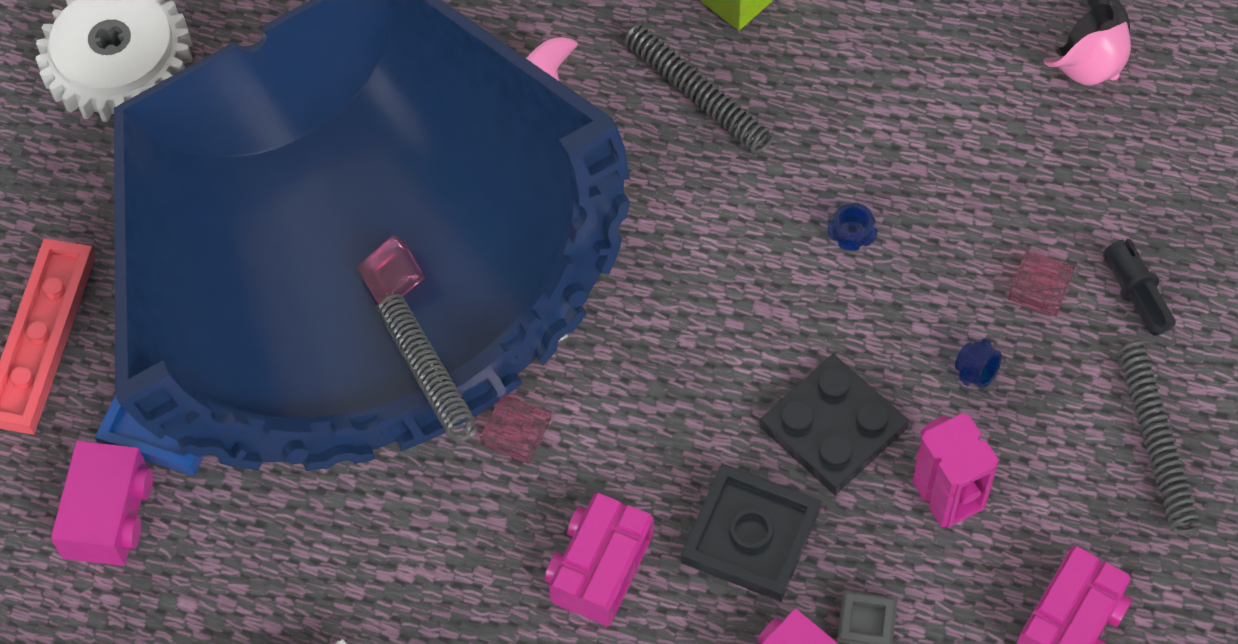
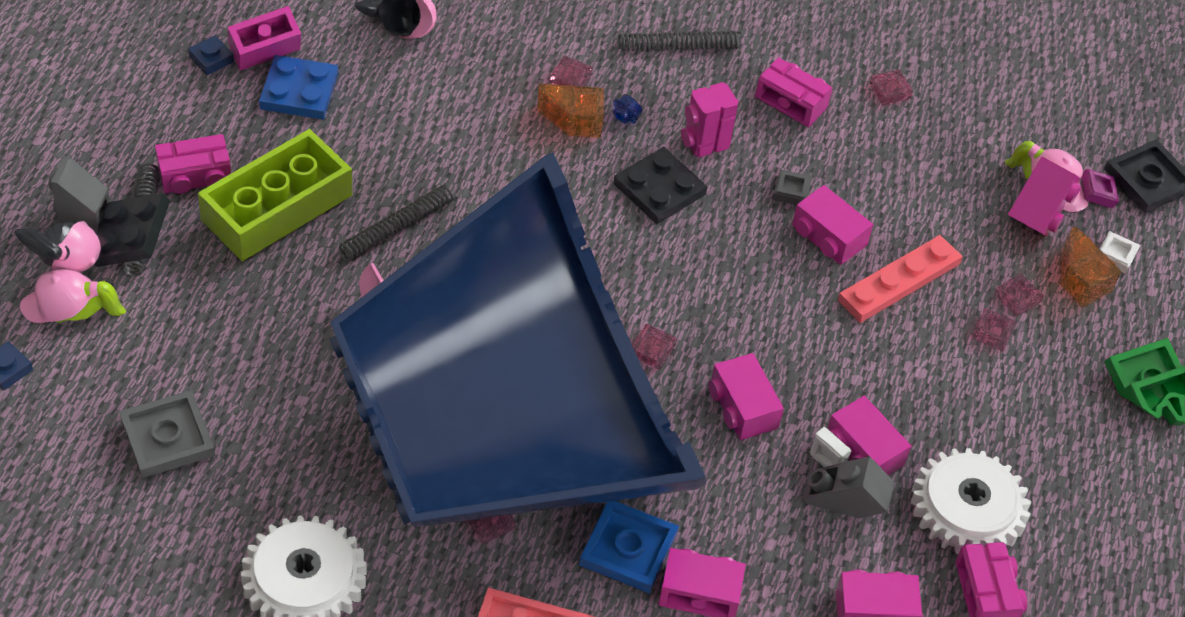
camera: 95 degrees left, 10 degrees down
(390, 270) = (534, 397): clear pink tile -> none
(419, 353) = (611, 374): dark grey piece -> none
(423, 551) = (745, 396): none -> dark pink brick
(600, 558) = (753, 304): dark pink brick -> none
(751, 532) = (735, 230): black plate -> none
(853, 215) = (521, 154): clear blue plate -> none
(955, 289) = (573, 108): none -> clear orange slope
(1139, 286) = (581, 29): black axle -> none

